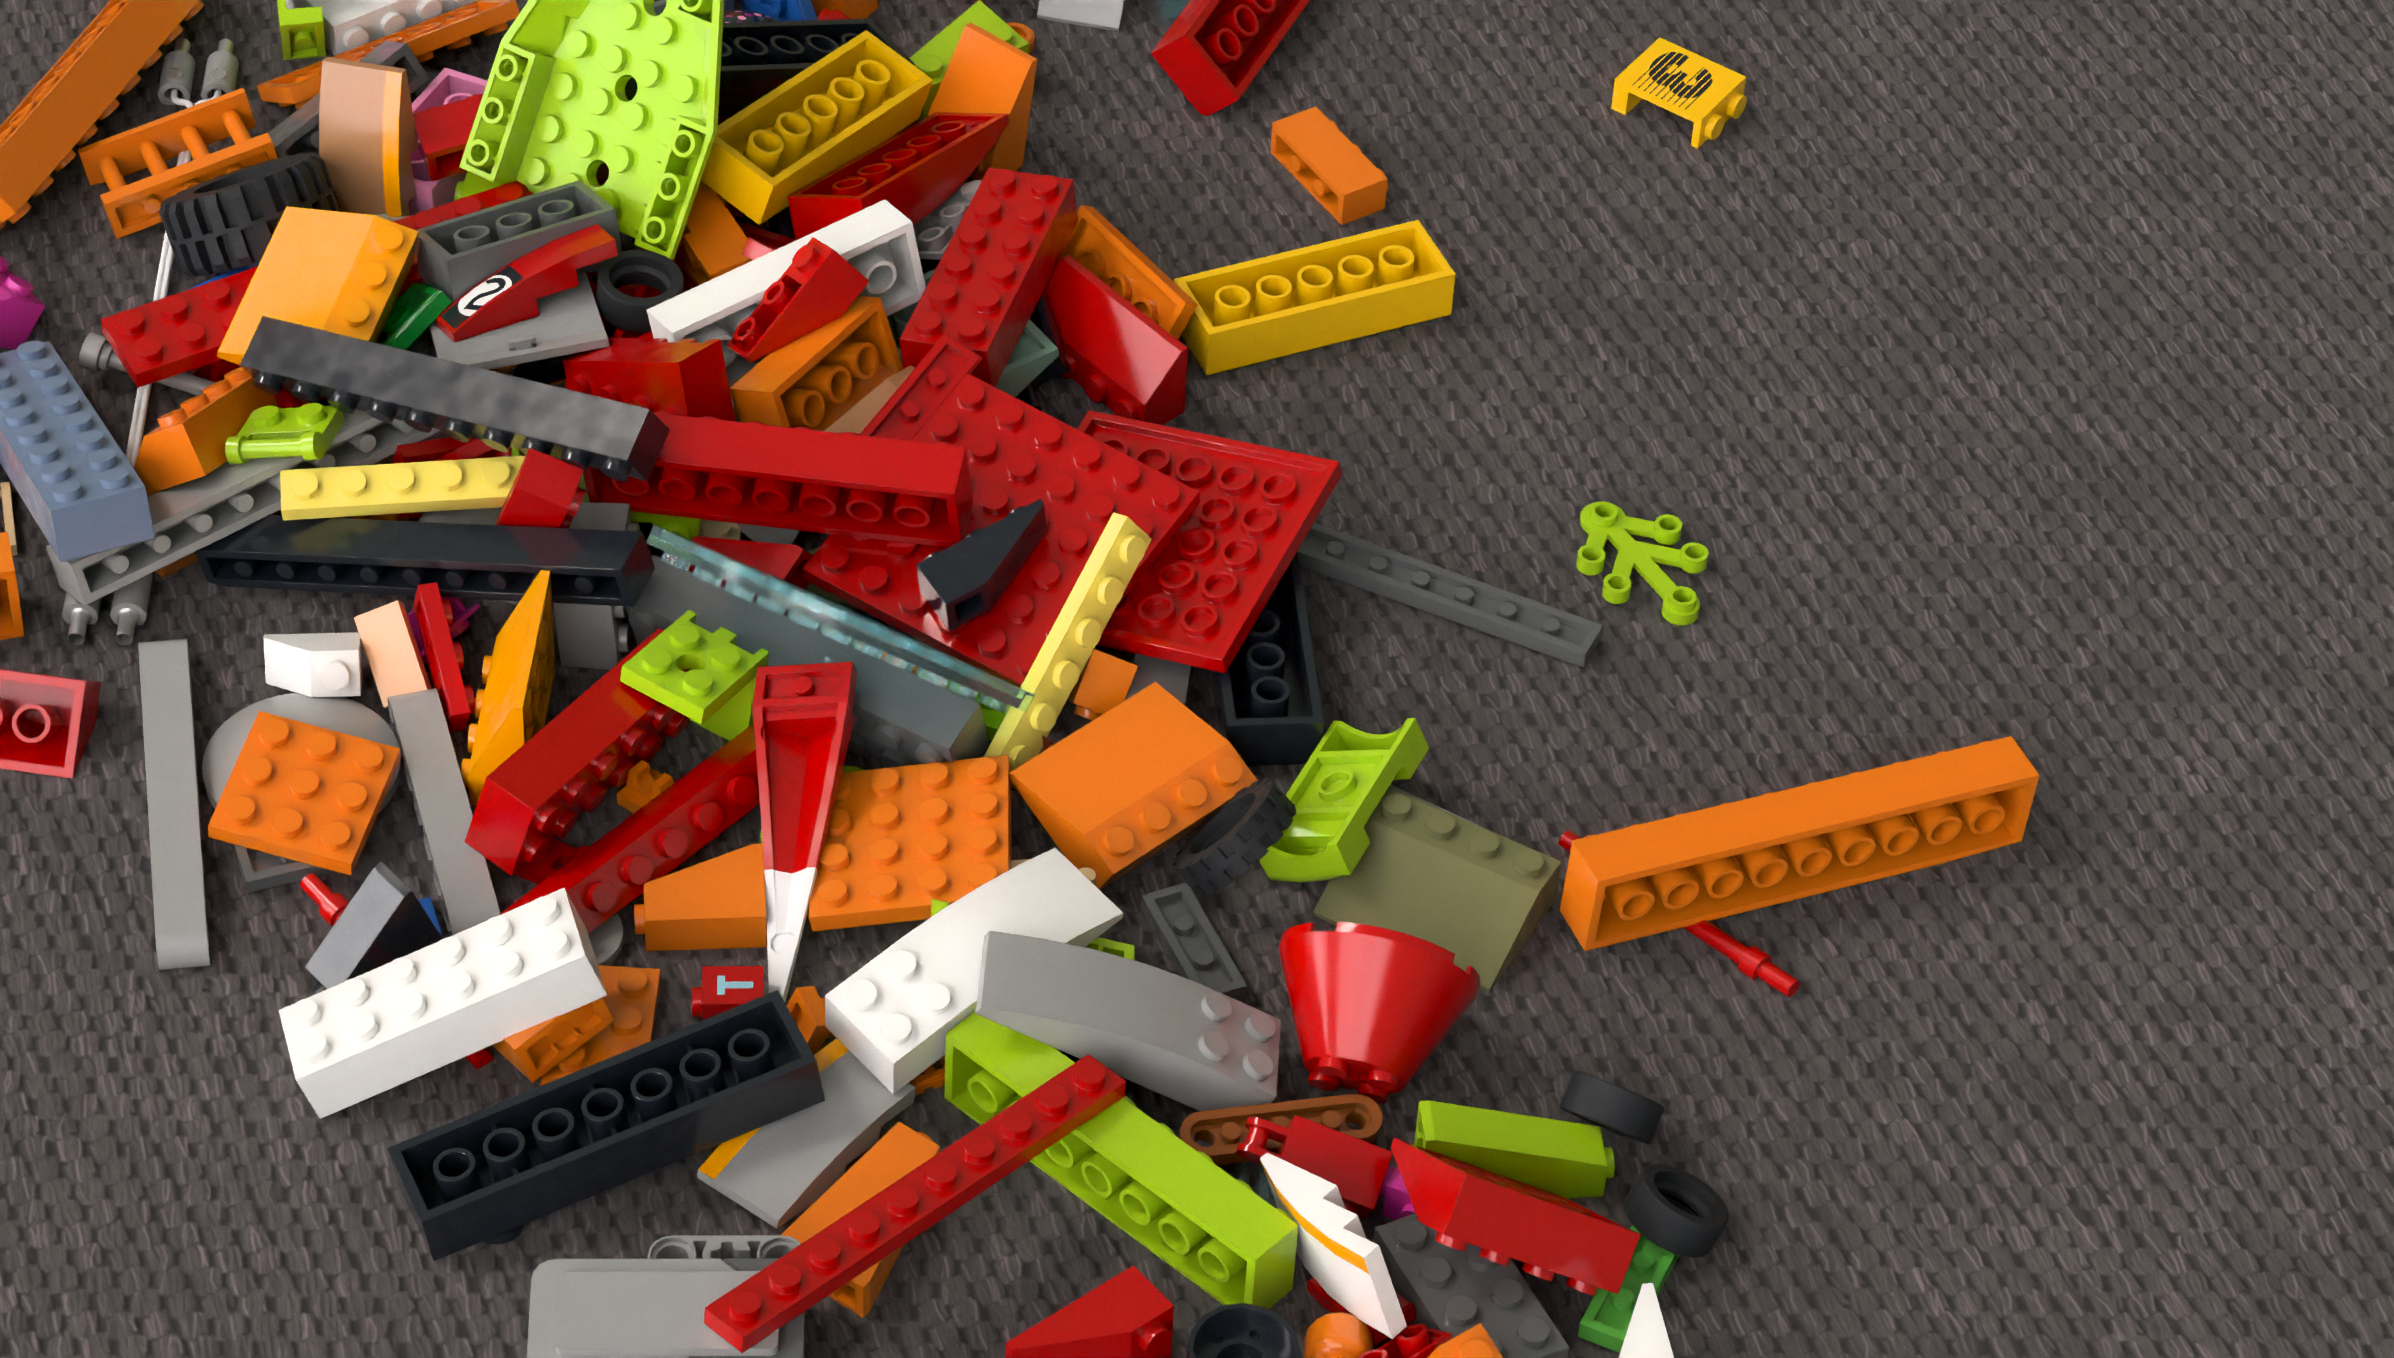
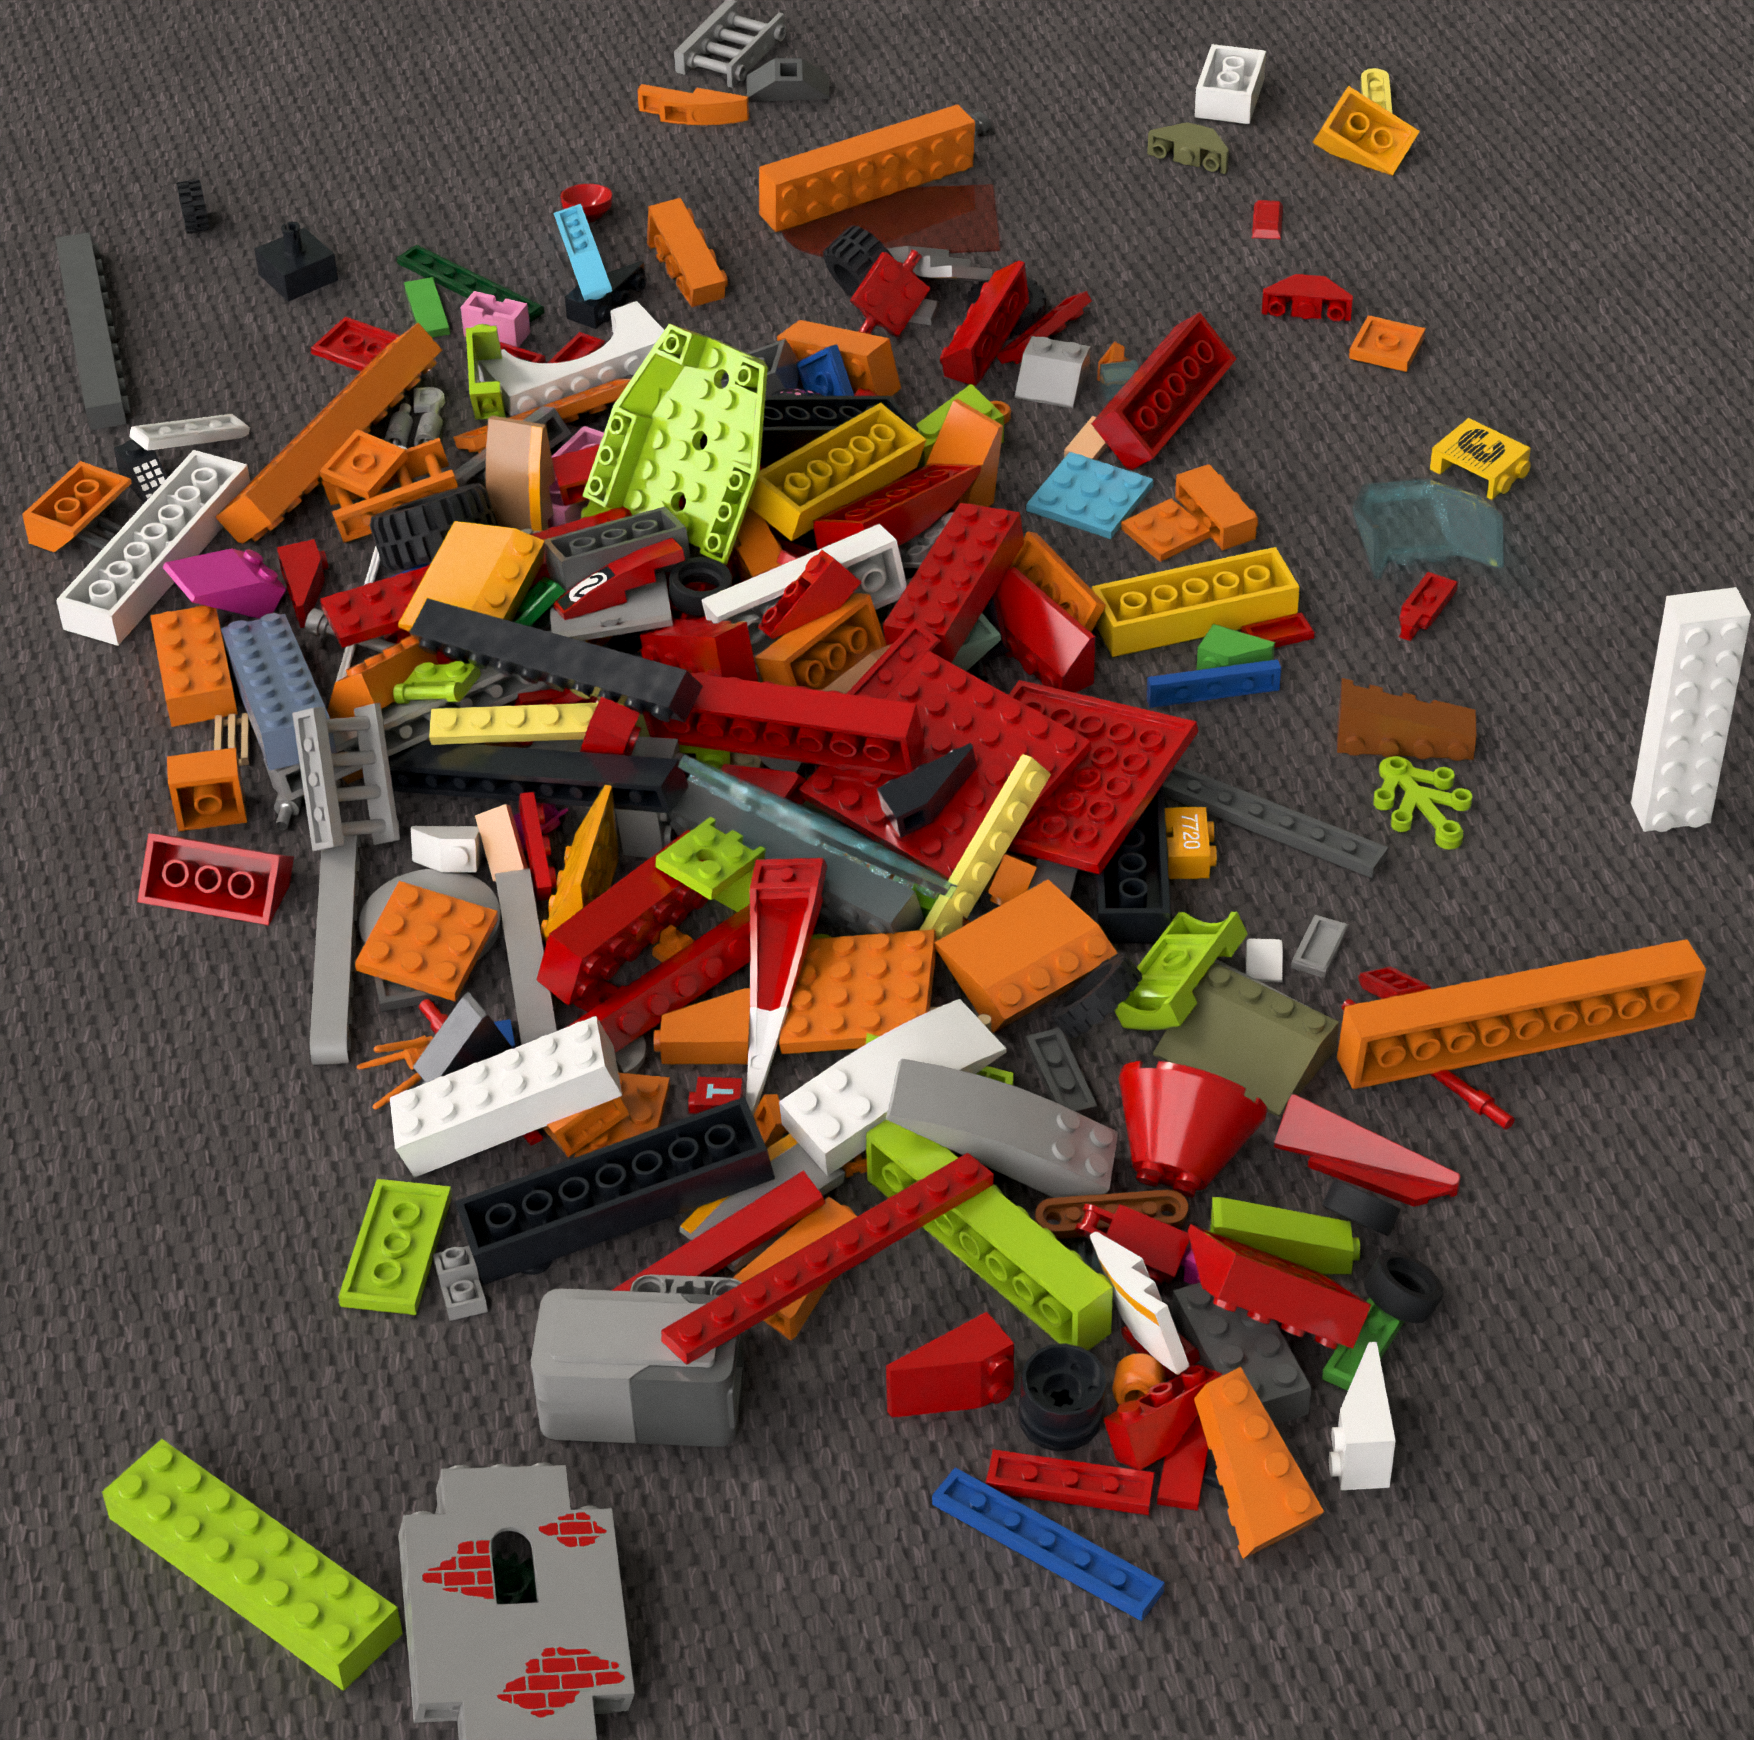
camera: 10 degrees right, 0 degrees up
(64, 283) = (303, 575): none -> red slope
(136, 575) = (319, 778): none -> light grey fence
(139, 127) = (363, 464): none -> orange plate
(210, 30) = (426, 397): none -> white tile
(299, 948) = (411, 1053): none -> orange plant
(306, 1214) = (395, 1247): none -> lime plate
(400, 1259) = (459, 1282): none -> light grey slope
(782, 1174) = (739, 1231): none -> red tile
(1143, 82) = (1087, 442): none -> light nougat tile
(1154, 152) = (1089, 495): none -> medium azure plate
(1262, 198) = (1165, 529): none -> orange plate
(1338, 626) = (1188, 843): none -> light orange brick
(1348, 408) = (1213, 683): none -> blue plate
(1371, 366) = (1230, 647): none -> bright green slope
(1427, 336) = (1282, 630): none -> red tile
(1451, 781) = (1264, 959): none -> white slope
(1522, 761) = (1319, 946): none -> light grey tile
(1604, 1039) = (1361, 1156): none -> wedge
(1607, 459) = (1402, 725): none -> dark orange wedge
(1618, 180) = (1426, 521): none -> clear light blue windscreen
(1622, 293) = (1425, 604): none -> red hinge
(1623, 807) = (1390, 982): none -> red tile
(1997, 429) = (1689, 708): none -> white brick

